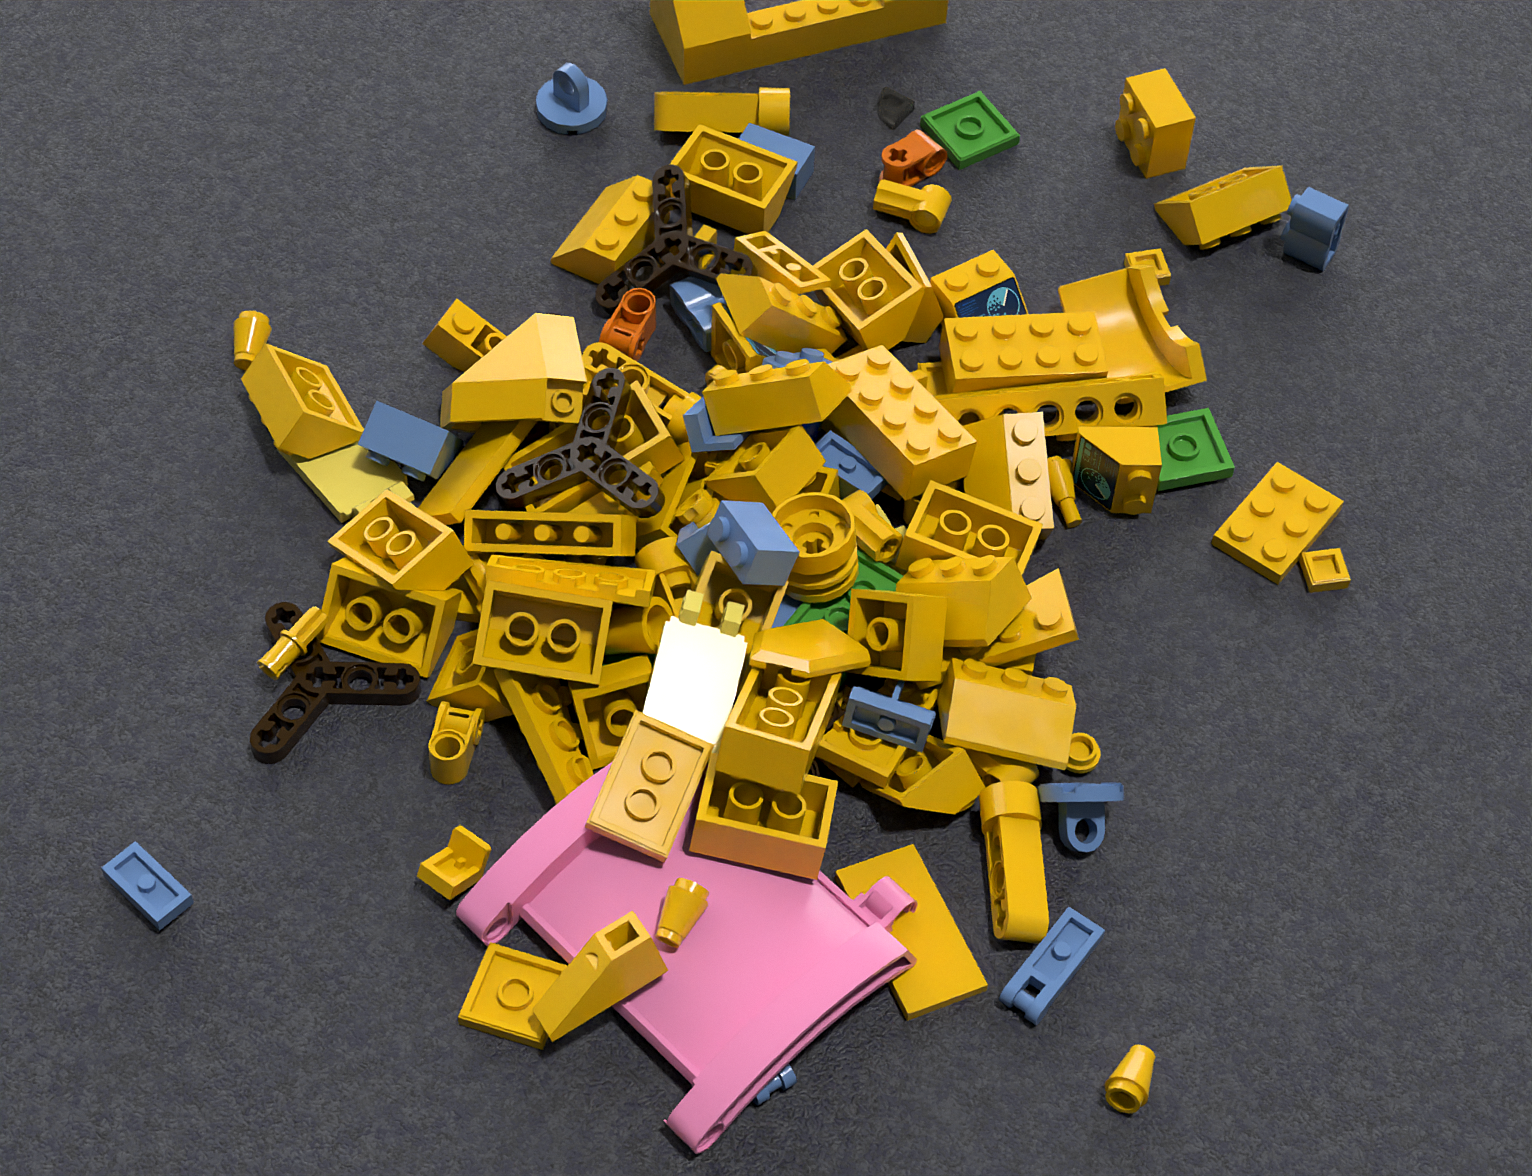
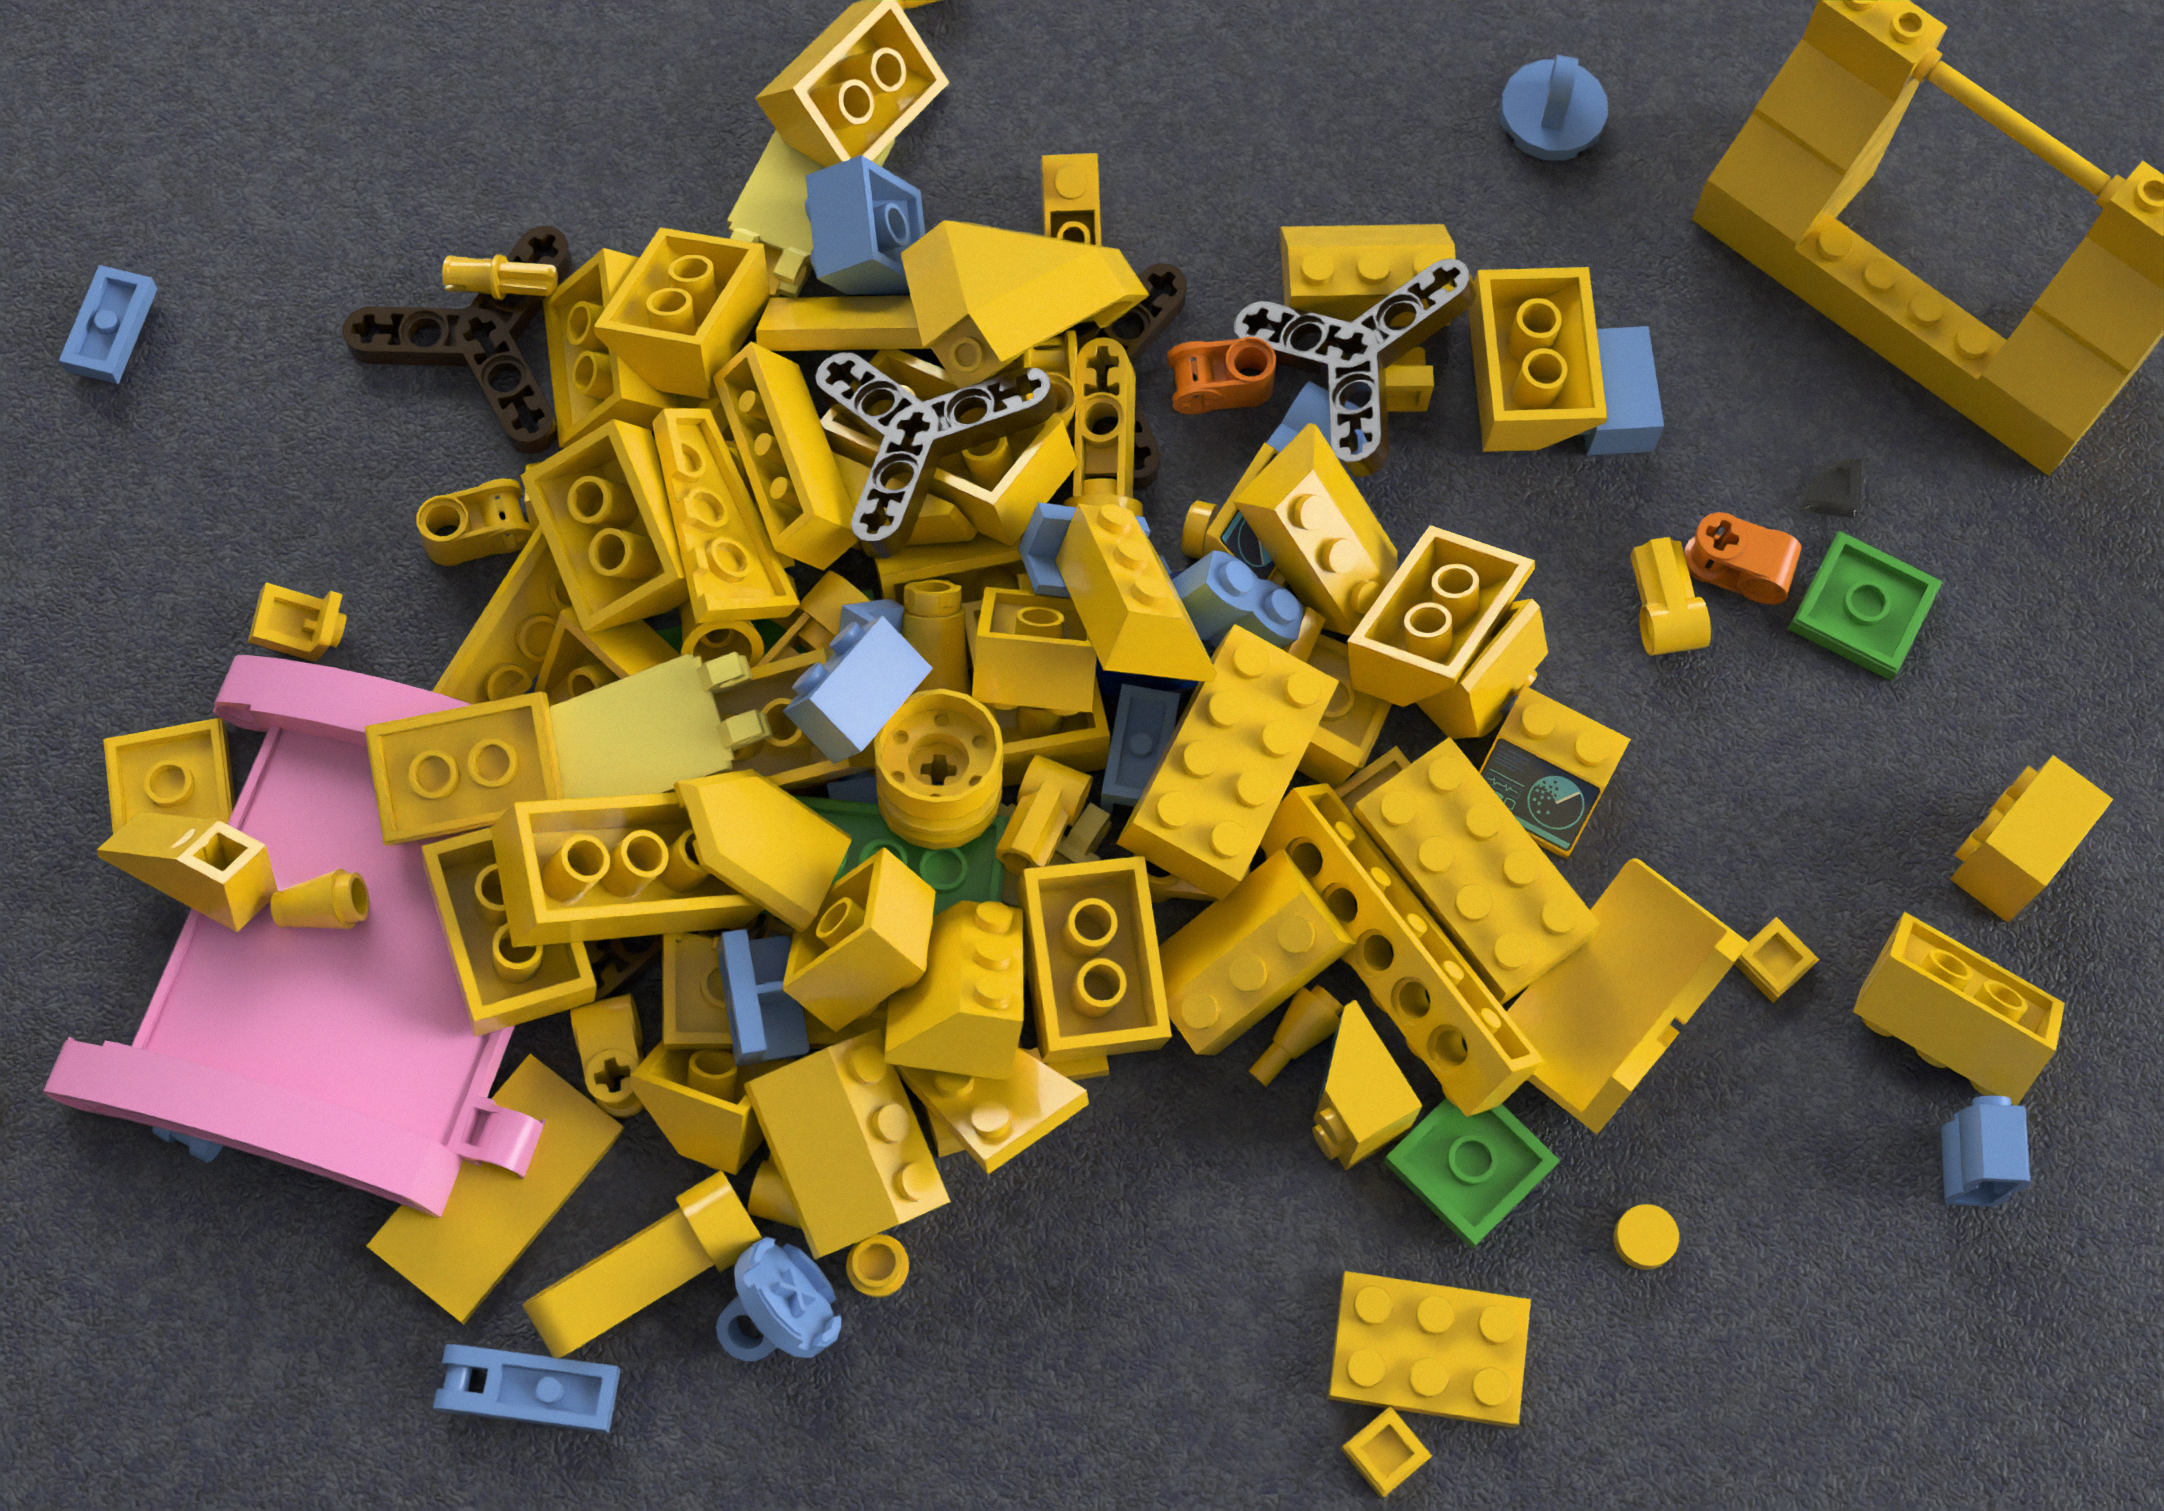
camera: 60 degrees right, 15 degrees up
(723, 110) = (1657, 291): yellow beam -> none
(779, 263) = (1409, 488): yellow slope -> none
(864, 821) = (610, 1046): none -> yellow piece
(1269, 398) = (1646, 1237): none -> yellow tile

